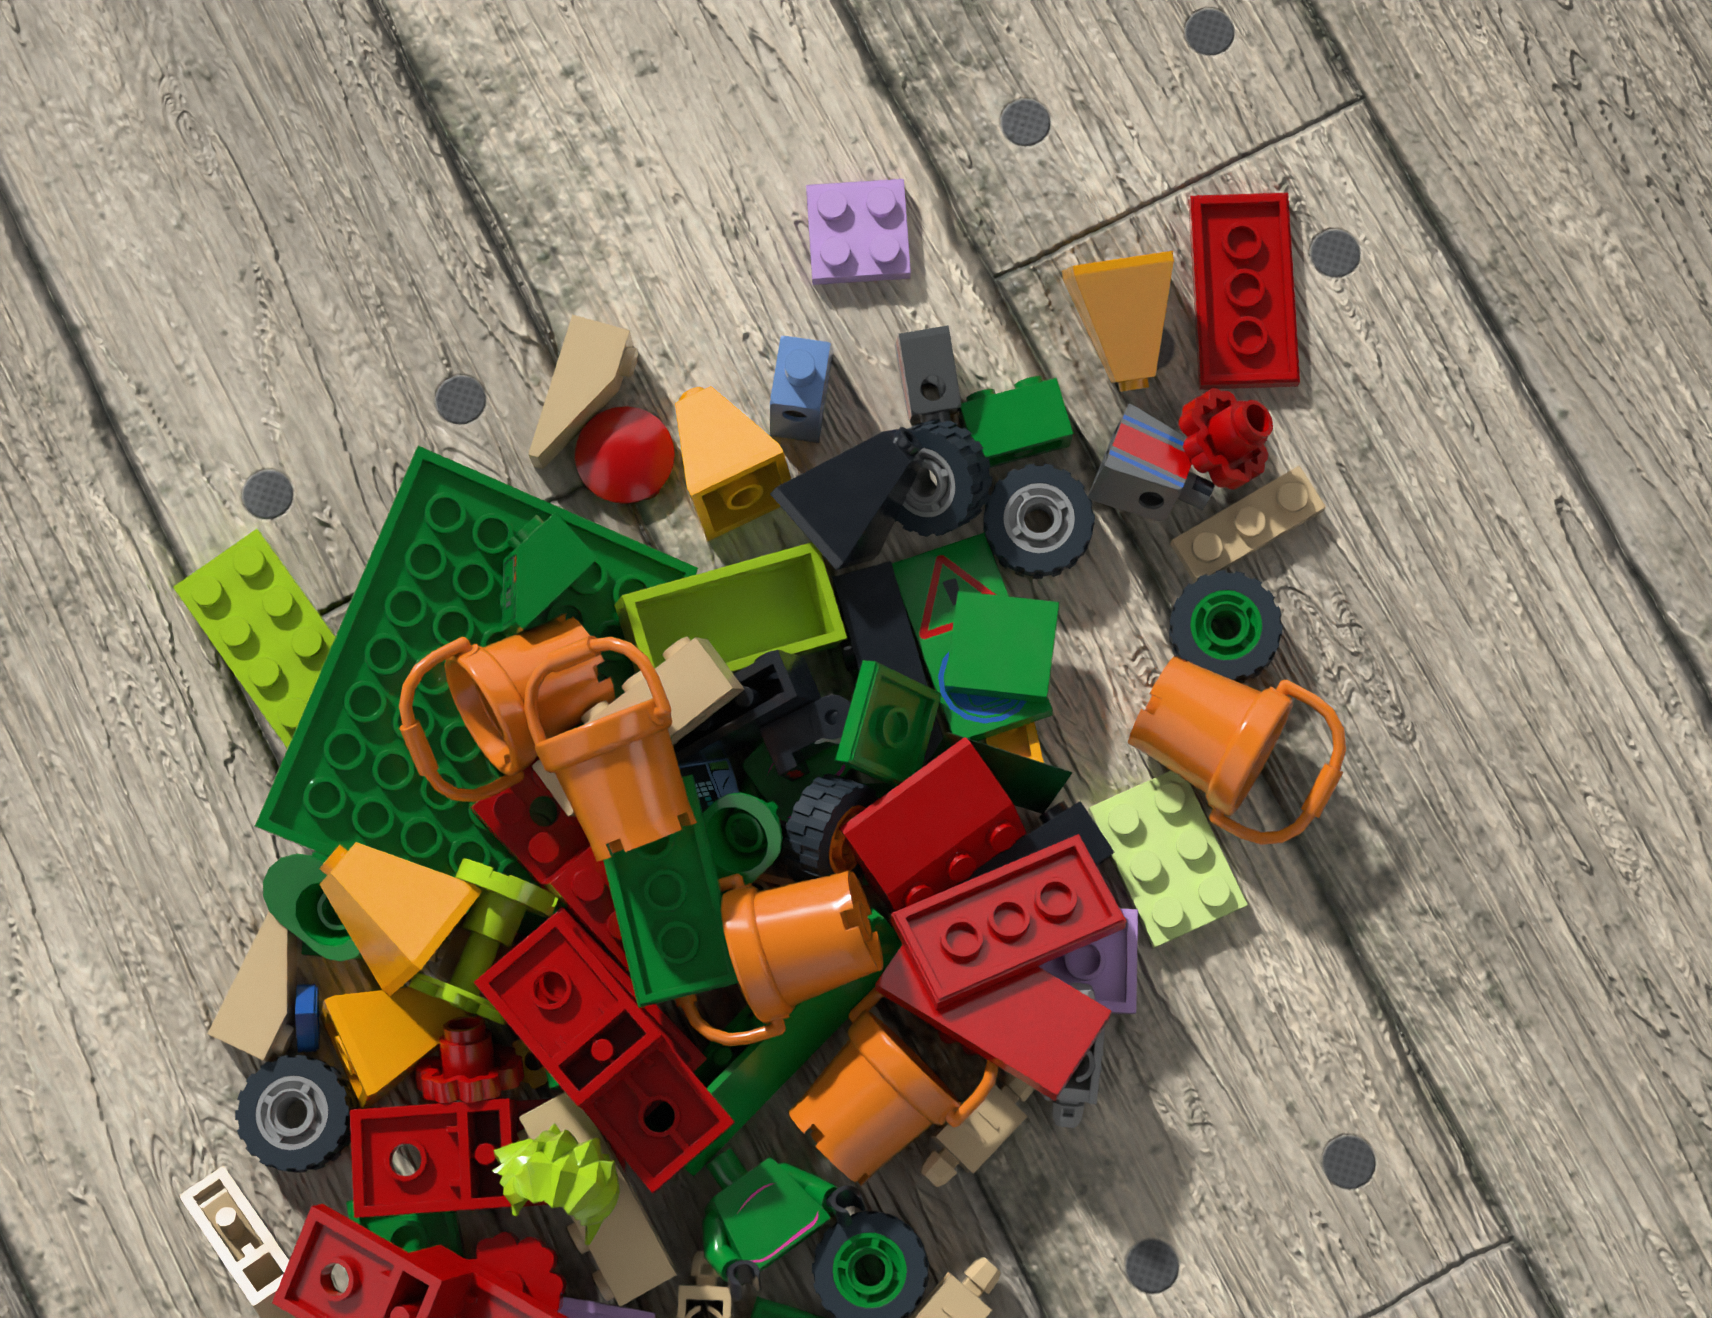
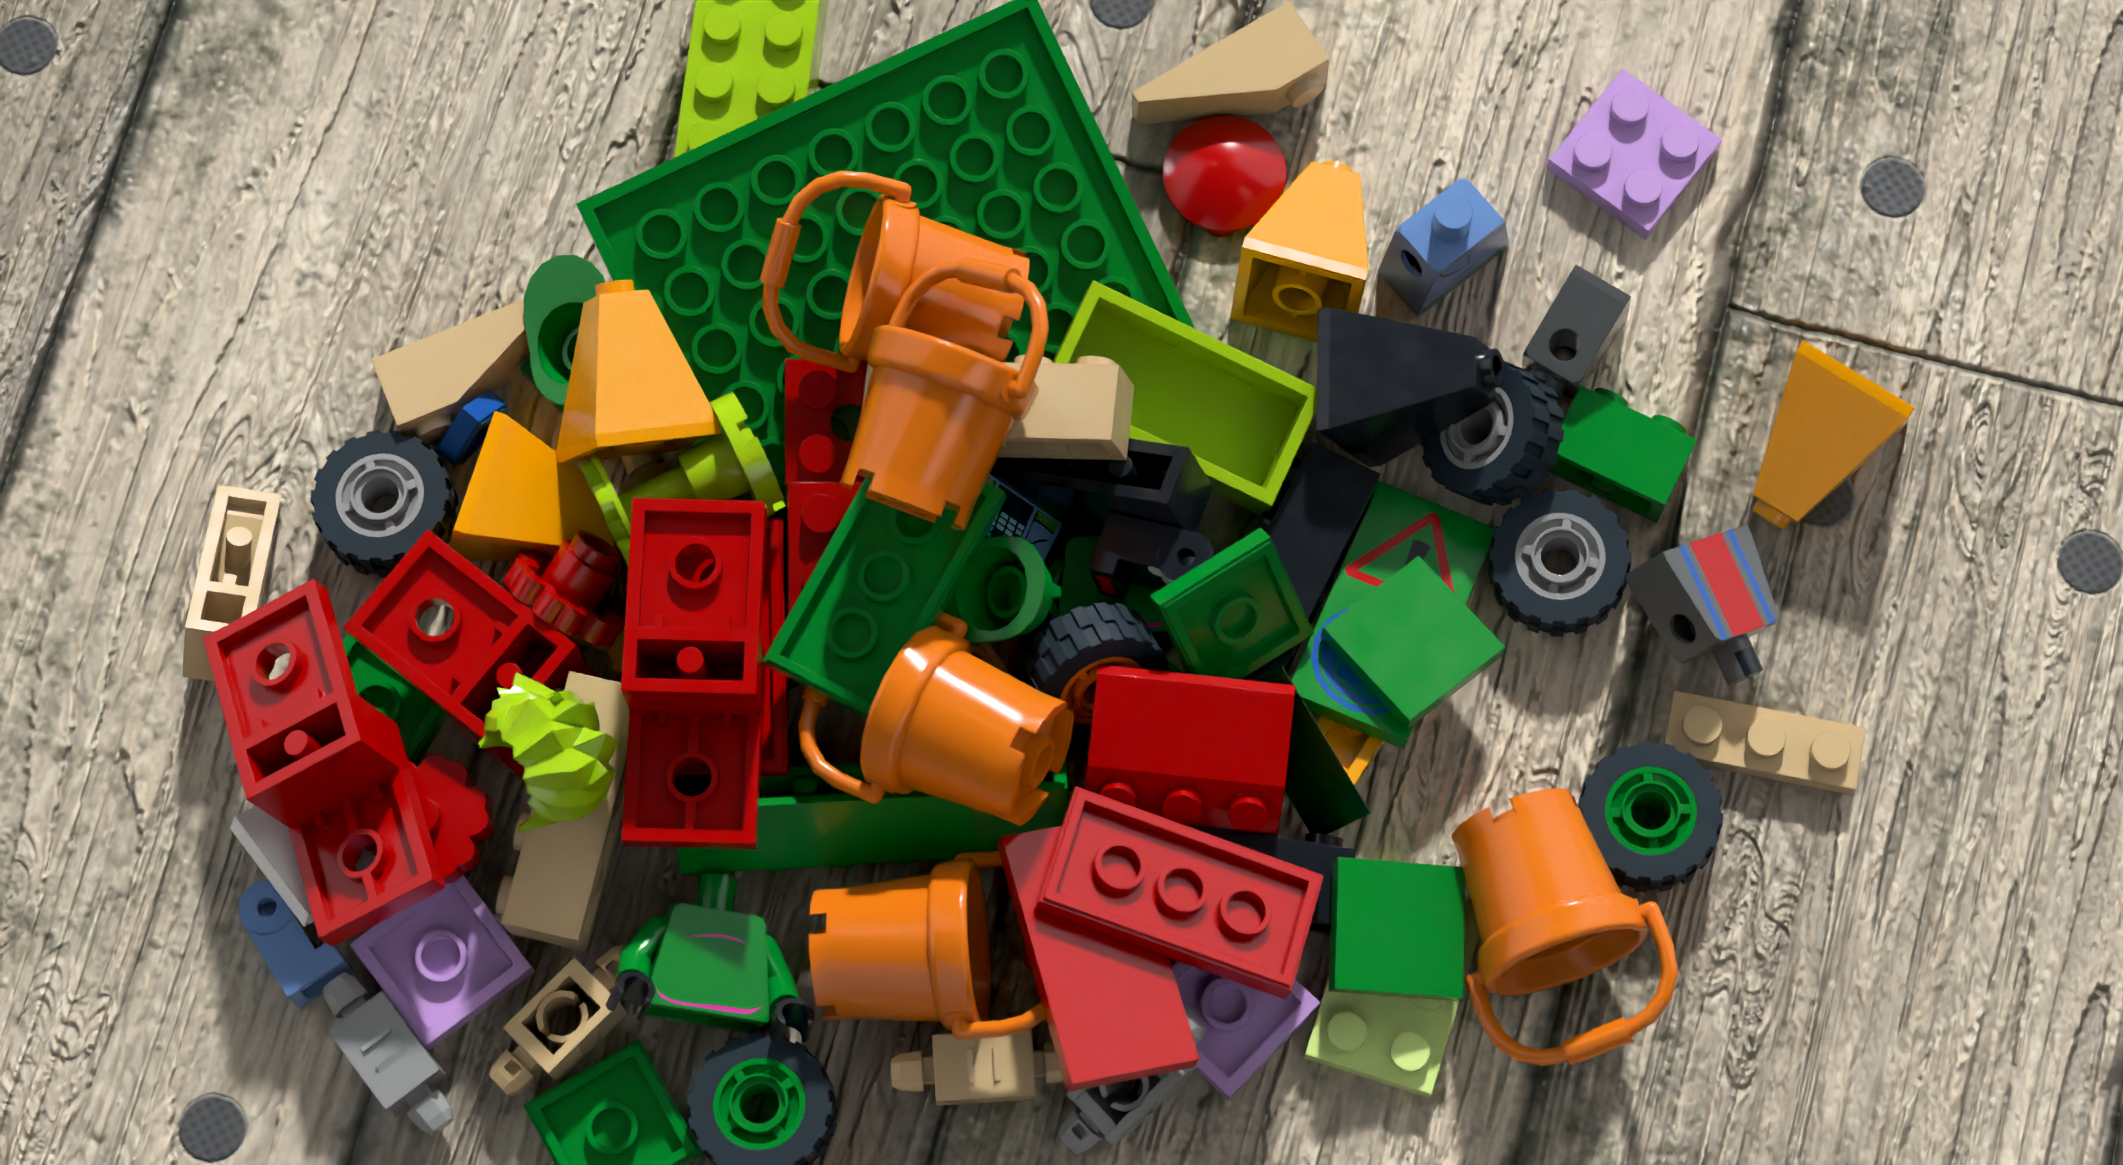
camera: 45 degrees right, 5 degrees down
(539, 569) = (1042, 194): green slope -> none
(1146, 827) = (1397, 929): none -> green tile
(1226, 437) = (1812, 636): red plant -> none
(1243, 291) = (1963, 520): red tile -> none

